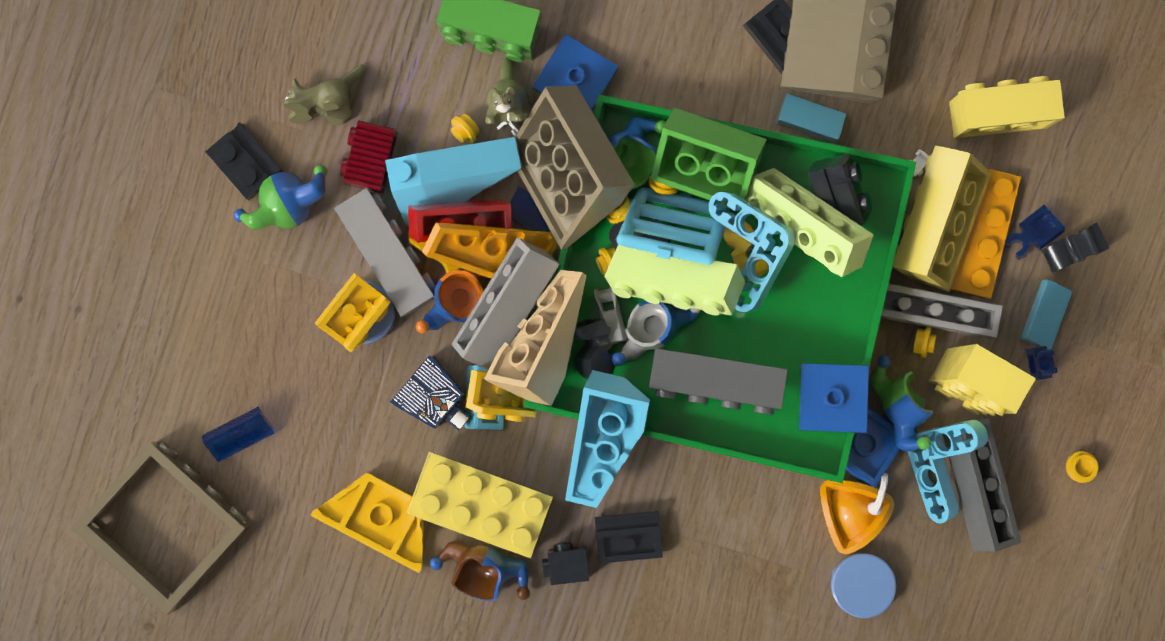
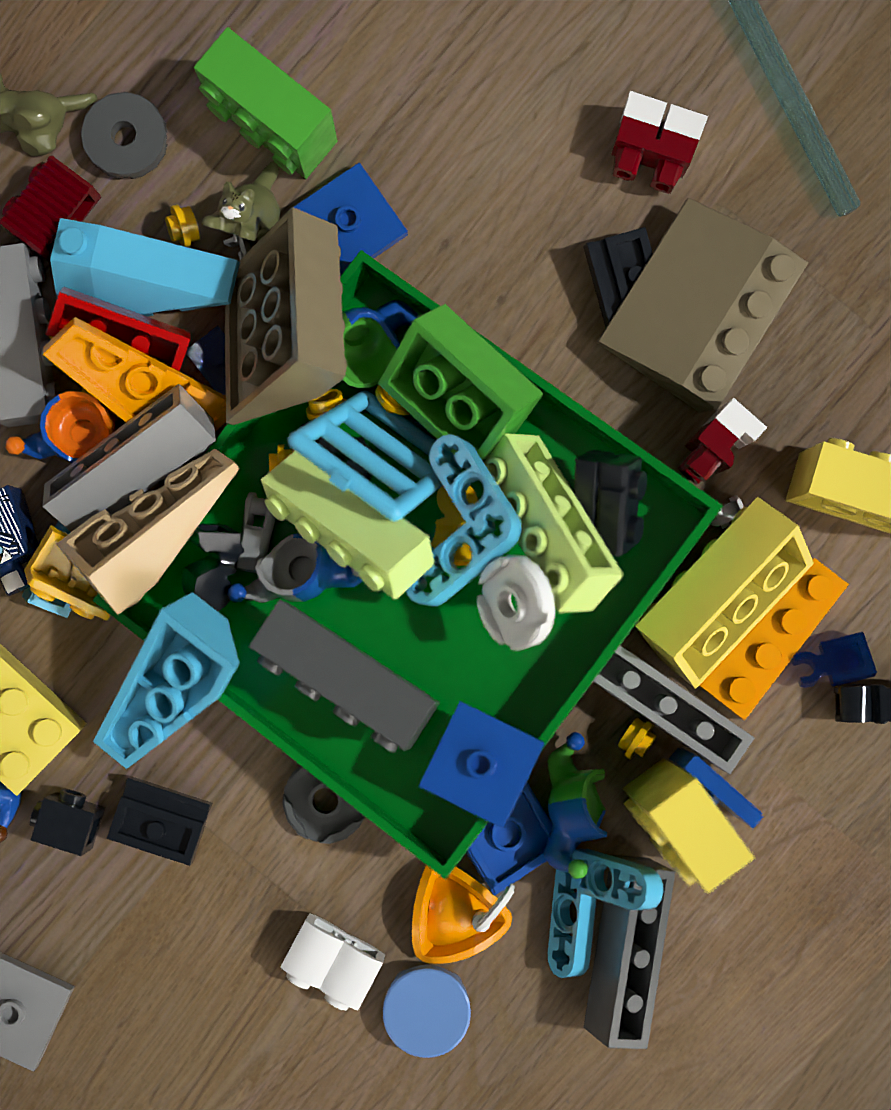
camera: 20 degrees right, 0 degrees up
(392, 66) = (110, 116): none -> dark grey tile
(731, 494) = (309, 819): none -> dark grey tile
(786, 580) = (332, 962): none -> white brick
(811, 118) = (618, 399): medium azure slope -> none
(820, 272) = (534, 602): none -> white tile
(890, 117) = (712, 443): none -> dark red hips
(1010, 354) = (717, 788): none -> blue plate
(1041, 362) = (773, 830): clear blue plate -> none
(1046, 314) = (805, 770): medium azure slope -> none
(1082, 466) = (767, 981): yellow plate -> none

